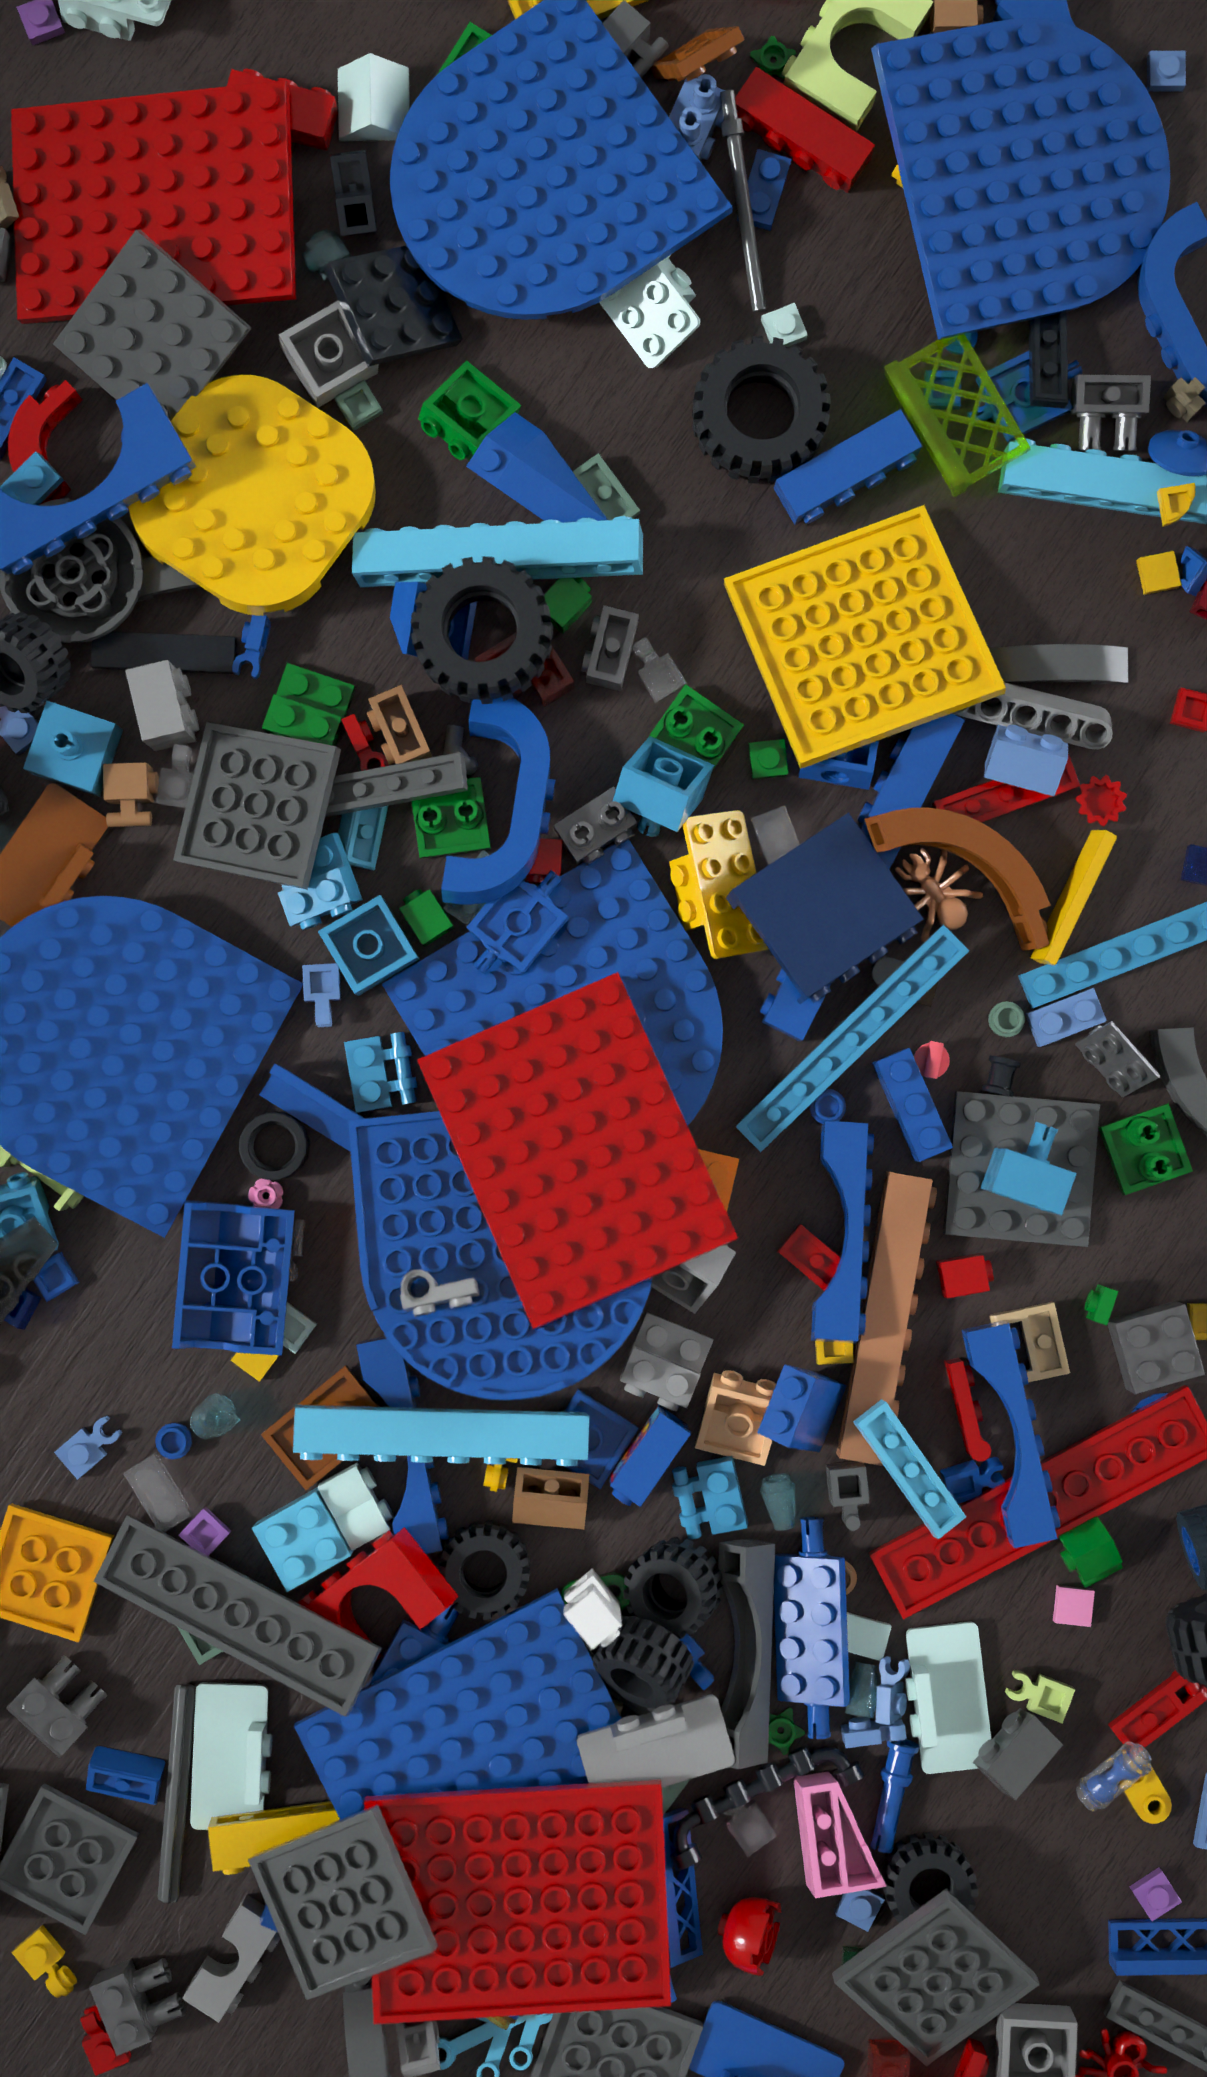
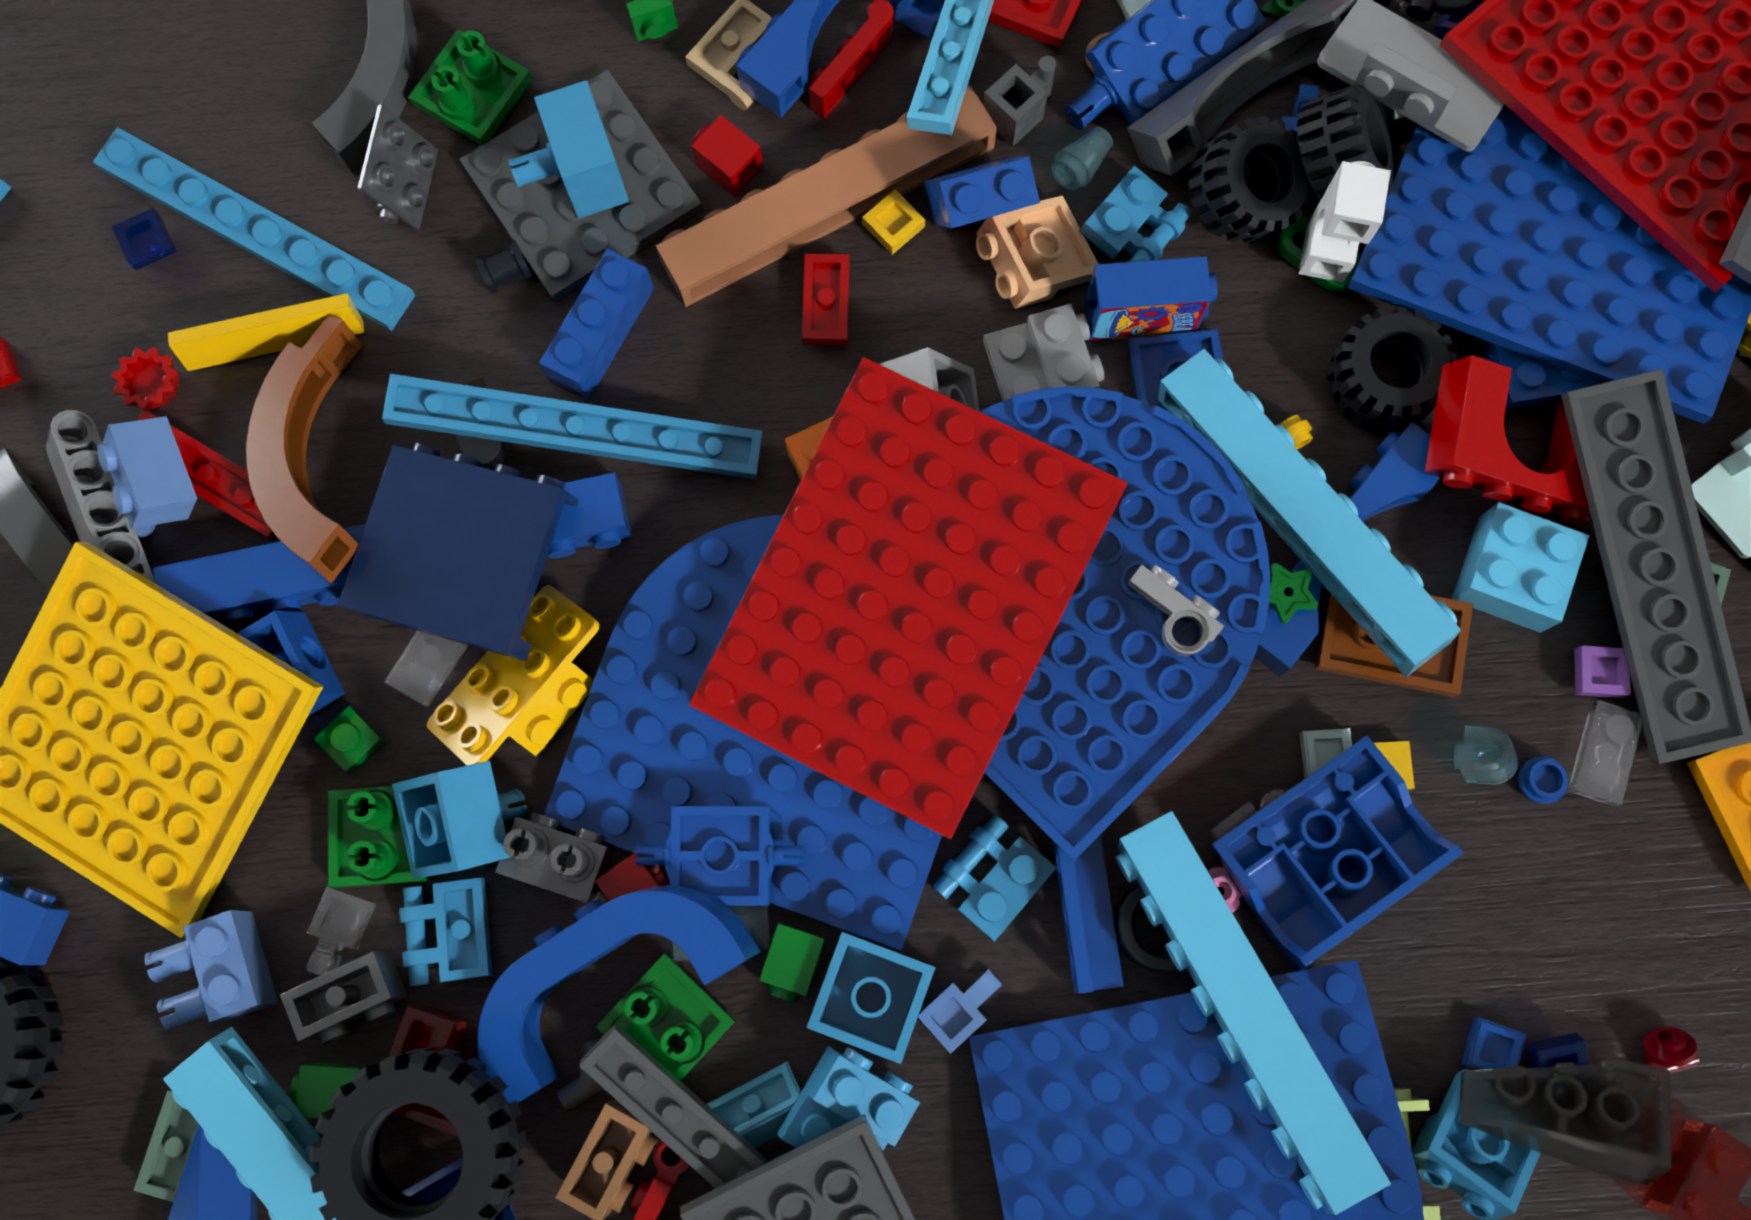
camera: 120 degrees left, 10 degrees down
(85, 1449) = (1632, 864): medium blue plate -> none
(188, 1148) = (1253, 1017): none -> medium azure brick
(355, 1505) = (1444, 542): light aqua brick -> none
(390, 1384) = (1298, 583): none -> green plate
(550, 1498) = (1268, 361): medium nougat brick -> none
(599, 741) = (460, 931): none -> dark azure plate
(683, 594) = (227, 966): none -> medium blue brick
(828, 1106) = (665, 400): blue plate -> none
(844, 1156) = (850, 235): blue arch -> none
(932, 1059) = (534, 341): coral plate -> none
(937, 897) = (366, 460): nougat animal -> none
(1006, 1019) = (442, 305): sand green plate -> none
(1065, 1017) = (398, 254): medium blue plate -> none

